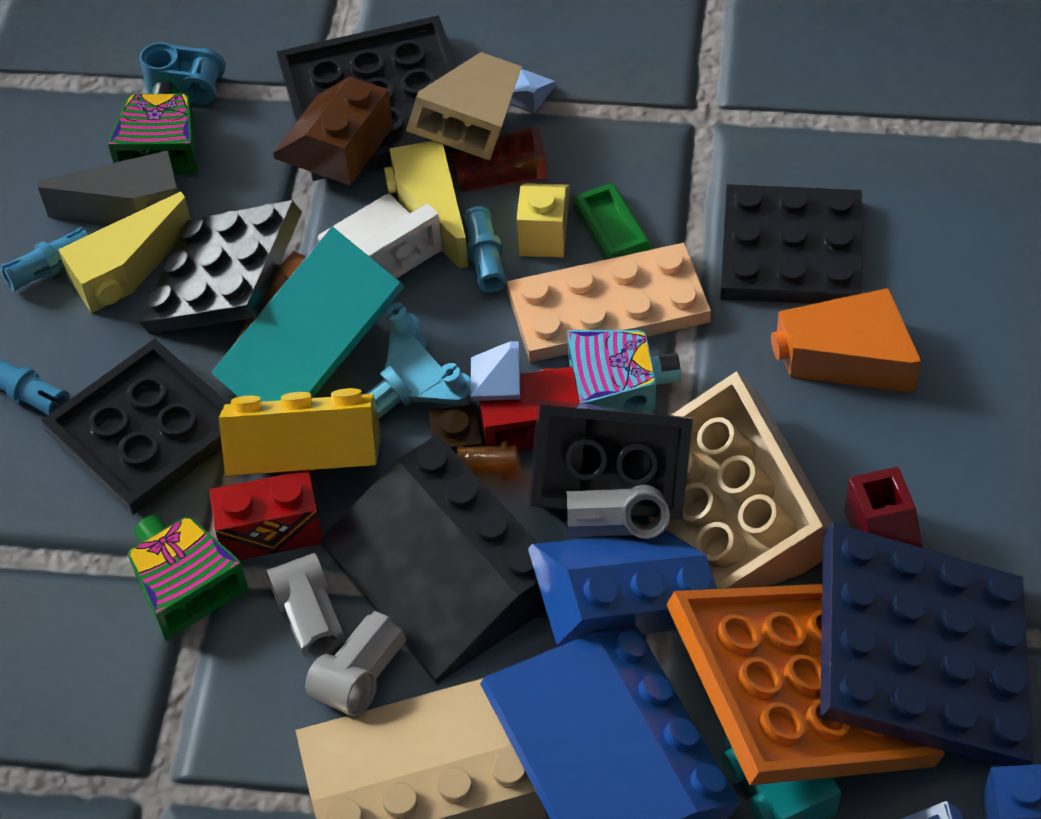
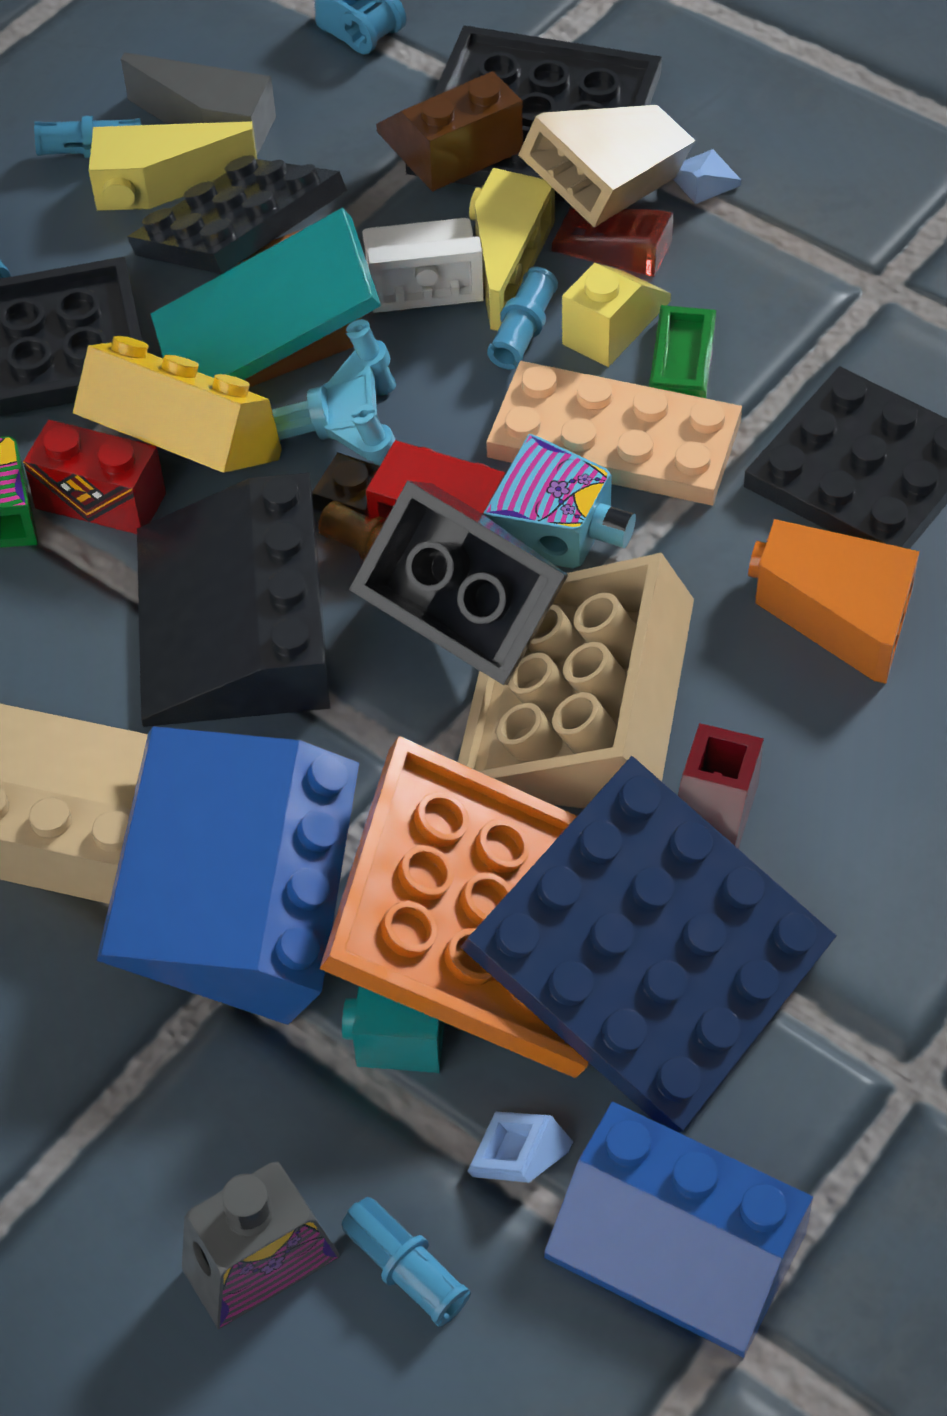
camera: 30 degrees right, 0 degrees up
(157, 125) = (292, 50): green torso -> none
(303, 595) = (72, 571): light grey piece -> none
(350, 676) = (52, 670): light grey piece -> none
(496, 373) = (416, 441): light blue slope -> none
(609, 512) = (424, 636): light grey piece -> none
(615, 582) = (364, 698): blue slope -> none

